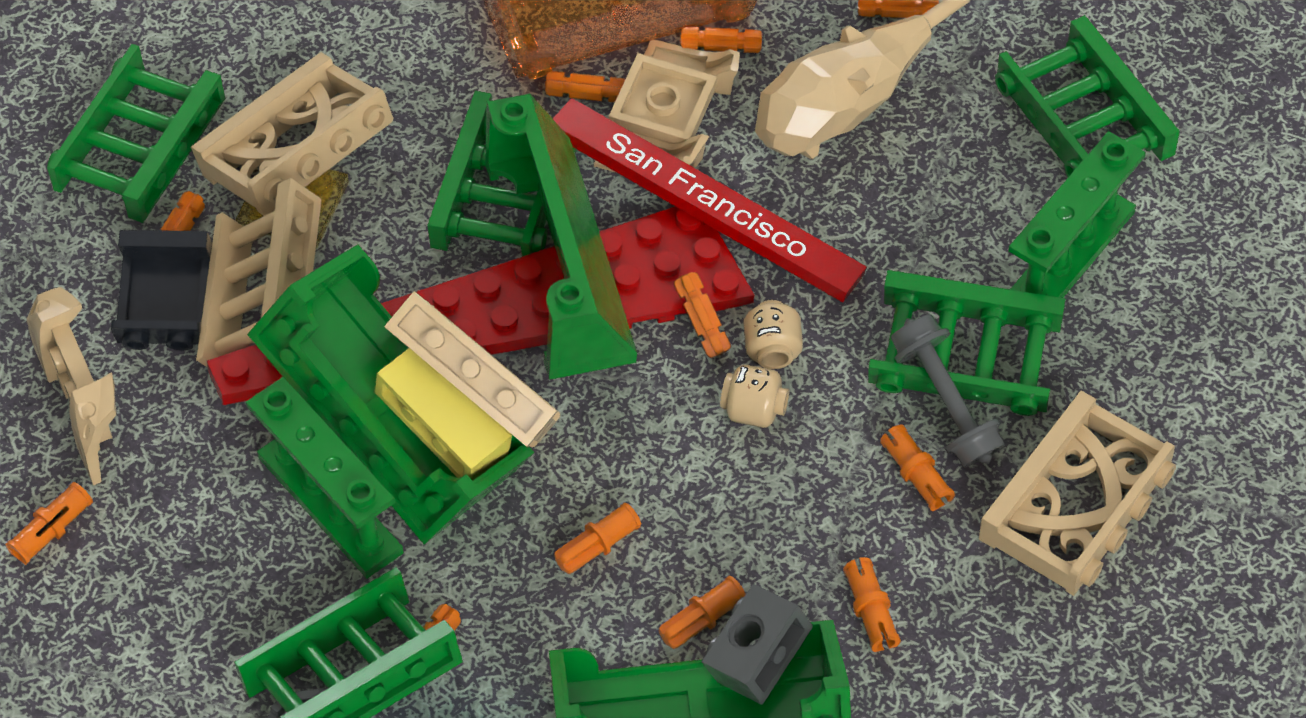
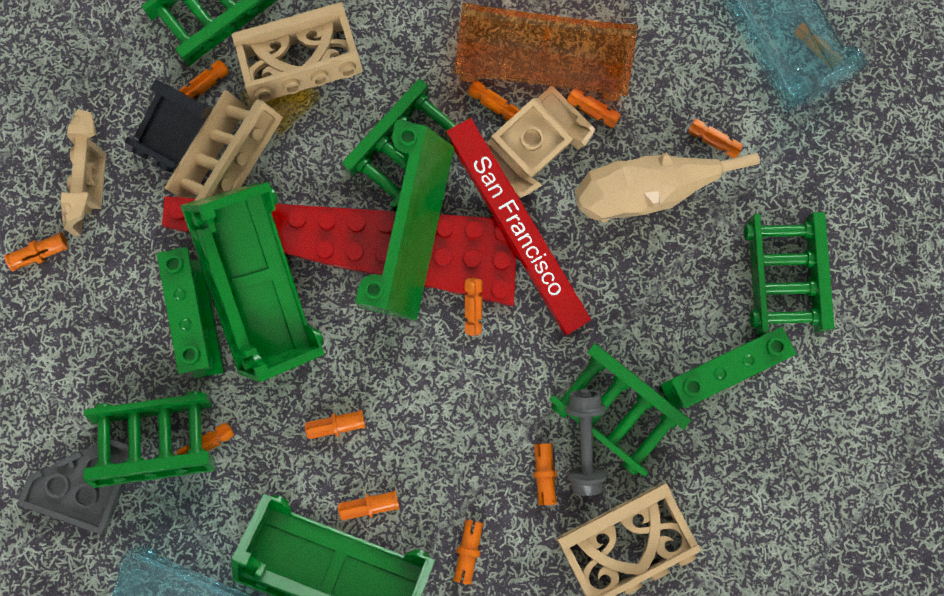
camera: 25 degrees right, 25 degrees up
(442, 416) = (276, 311): light yellow brick -> none
(473, 370) = (305, 294): tan fence -> none
(754, 396) = (474, 378): tan head -> none
(757, 667) = (398, 554): dark grey brick -> none
(773, 334) = (508, 340): tan head -> none

